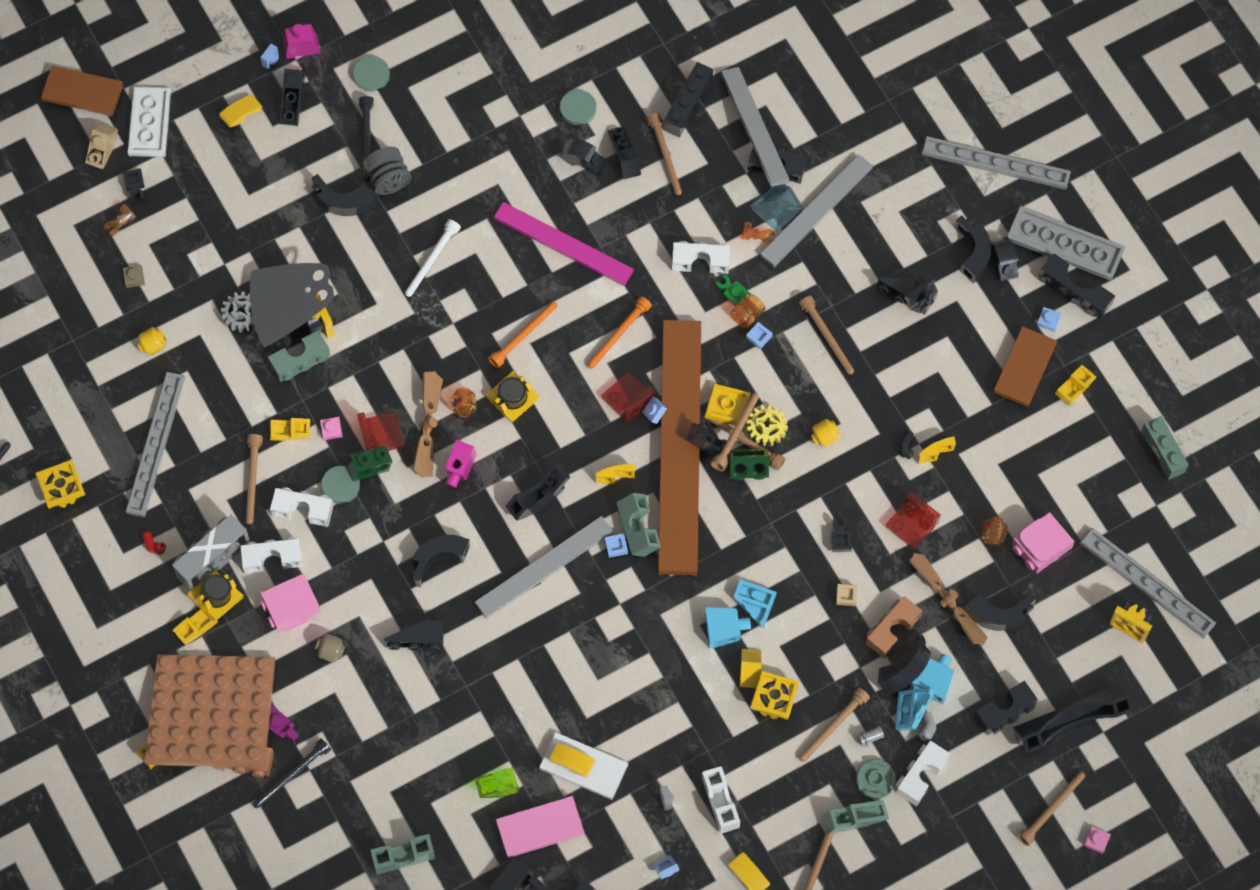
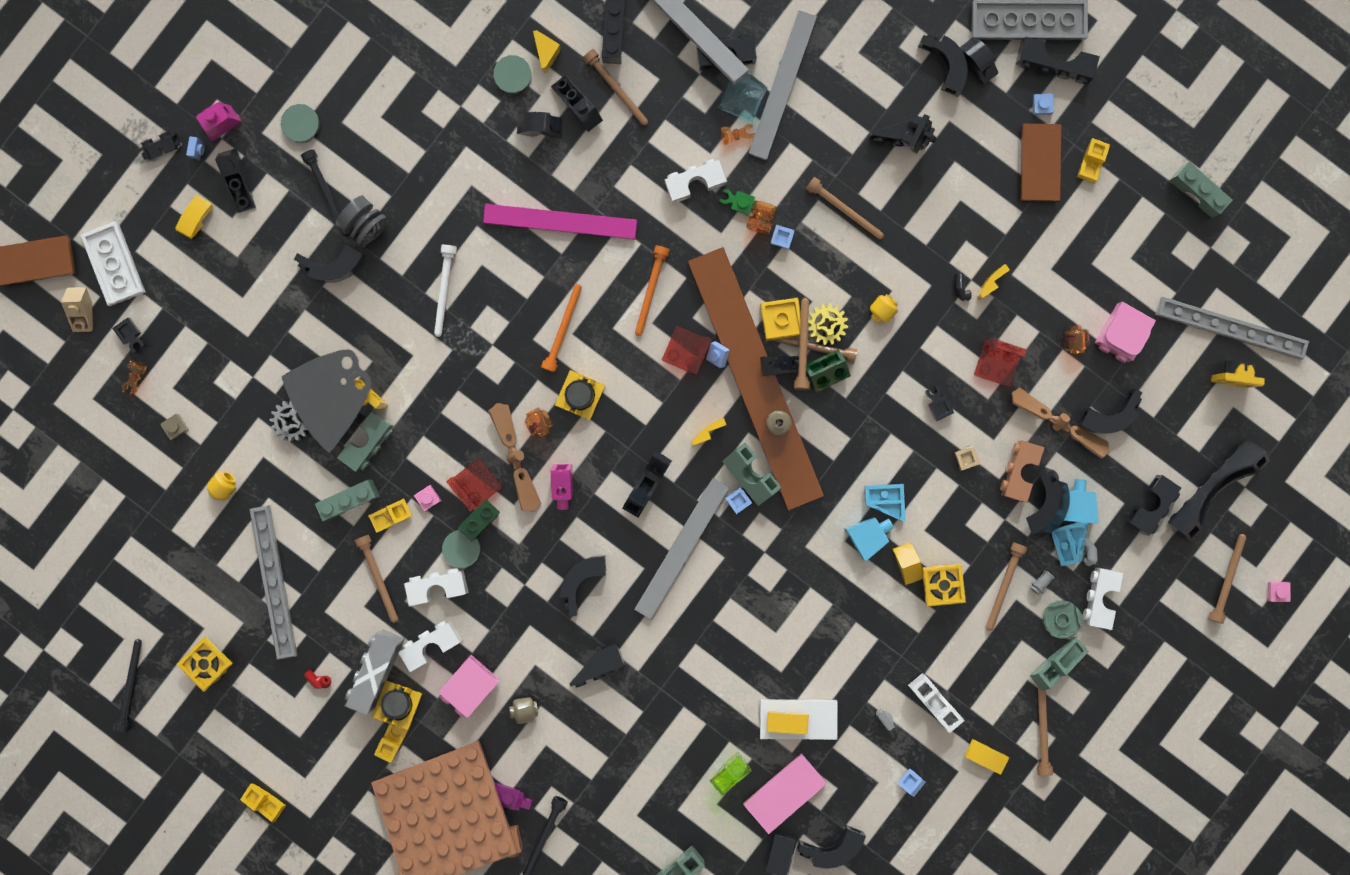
camera: 20 degrees left, 20 degrees up
(48, 632) = (262, 801): none -> yellow slope
(232, 41) = (165, 140): none -> black hinge
(270, 396) = (347, 499): none -> sand green arch
(618, 99) = (547, 50): none -> yellow slope
(682, 486) = (773, 428): none -> dark tan head

